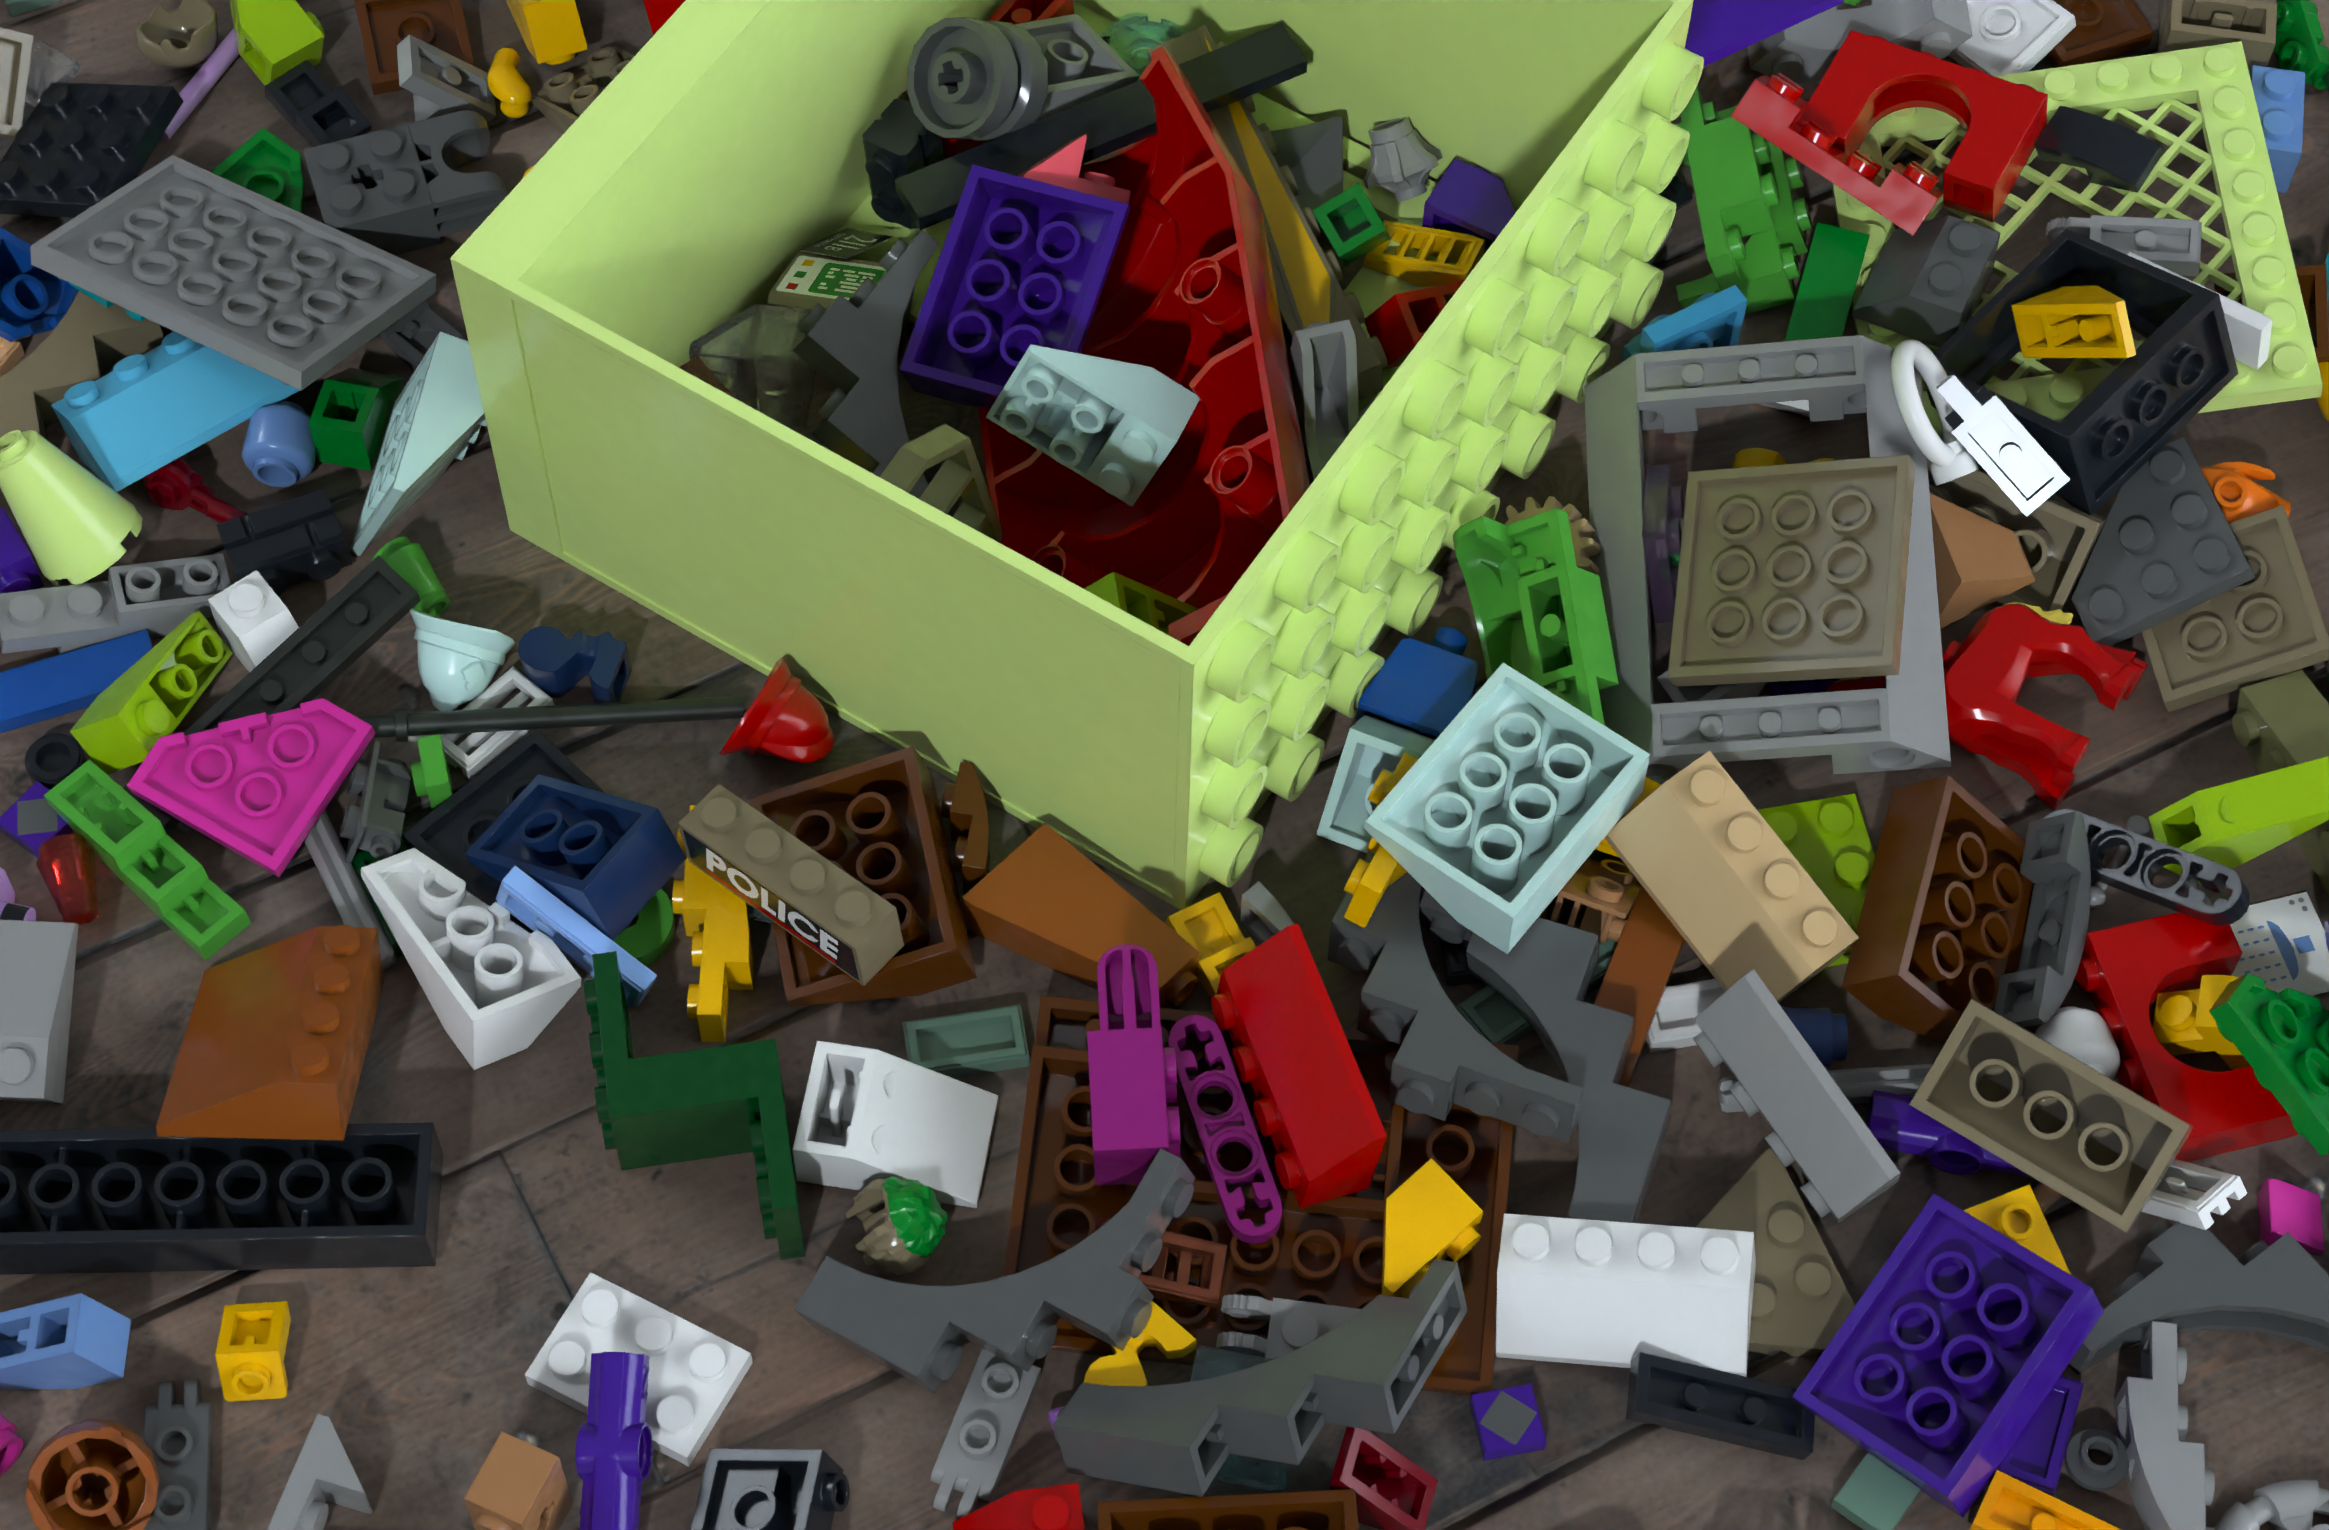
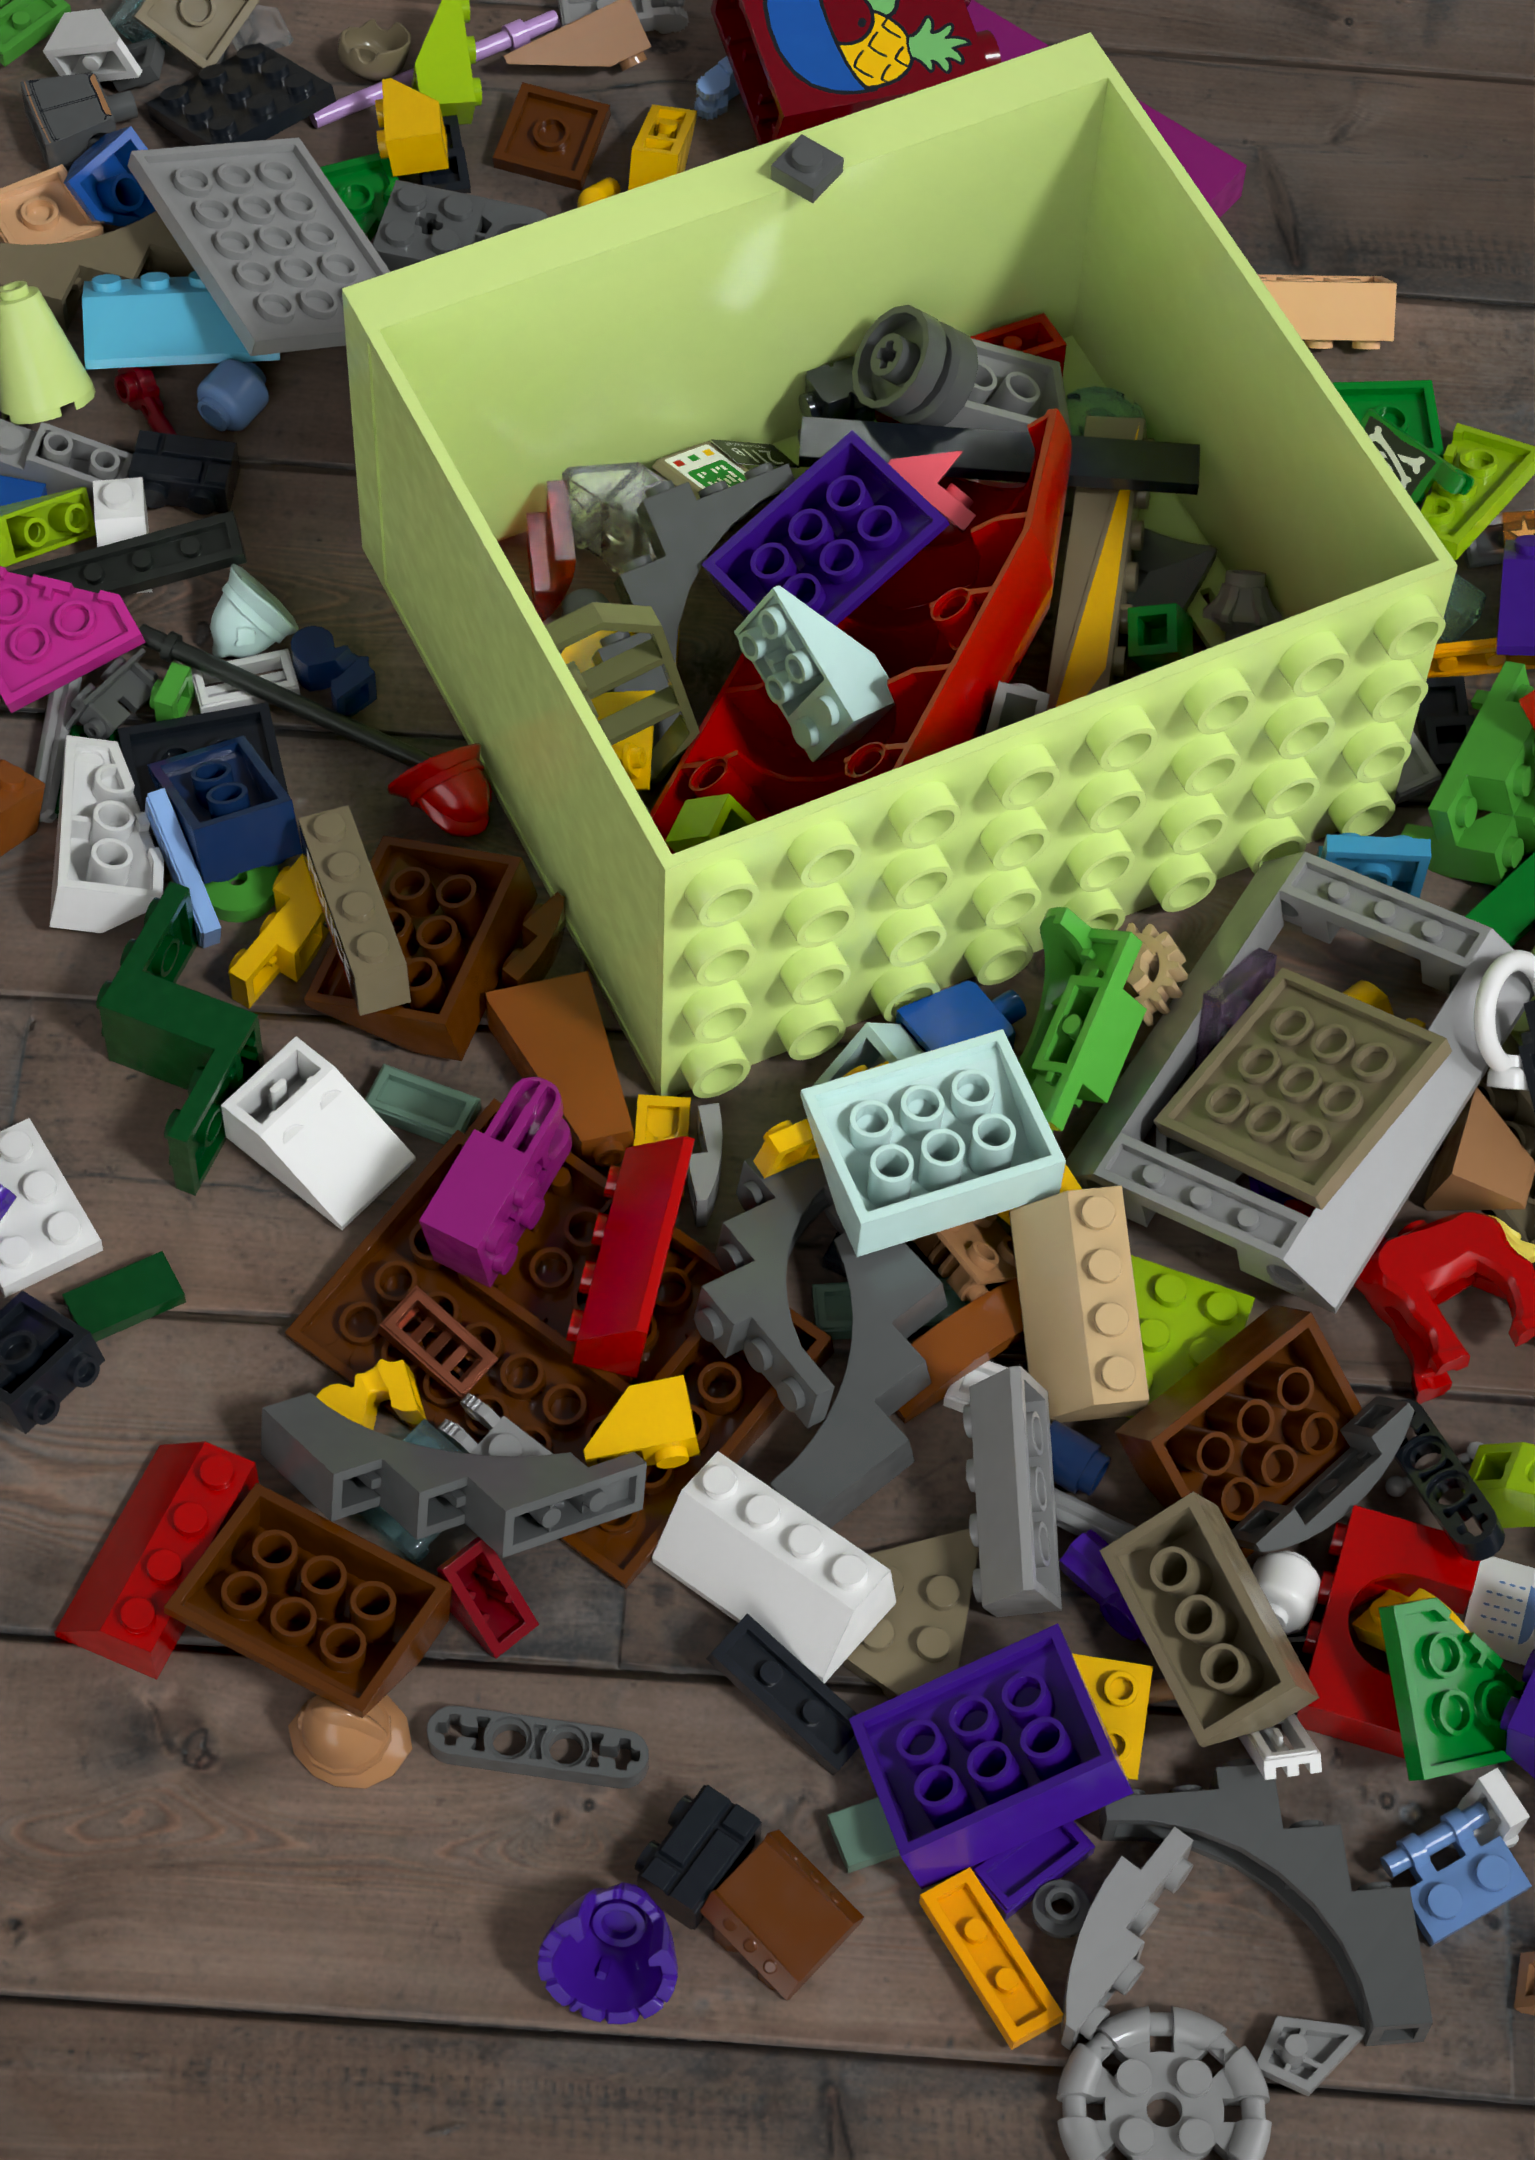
camera: 30 degrees right, 0 degrees up
(283, 91) = (412, 130): none -> yellow slope
(353, 417) = (299, 400): green slope -> none
(414, 567) = (261, 542): bright green cone -> none
(426, 430) = (305, 450): light aqua slope -> none
(442, 82) = (541, 176): light grey slope -> none
(813, 1395) = (125, 1297): none -> dark green tile
(900, 1224) = (269, 1209): piece -> none
(983, 1432) = (229, 1393): light grey hinge -> none
(1014, 1316) = (299, 1316): dark grey arch -> none
(1231, 1126) = (557, 1270): magenta beam -> none
(1507, 1422) = (622, 1612): dark purple tile -> none
(2290, 1210) = (1367, 1821): dark pink slope -> none

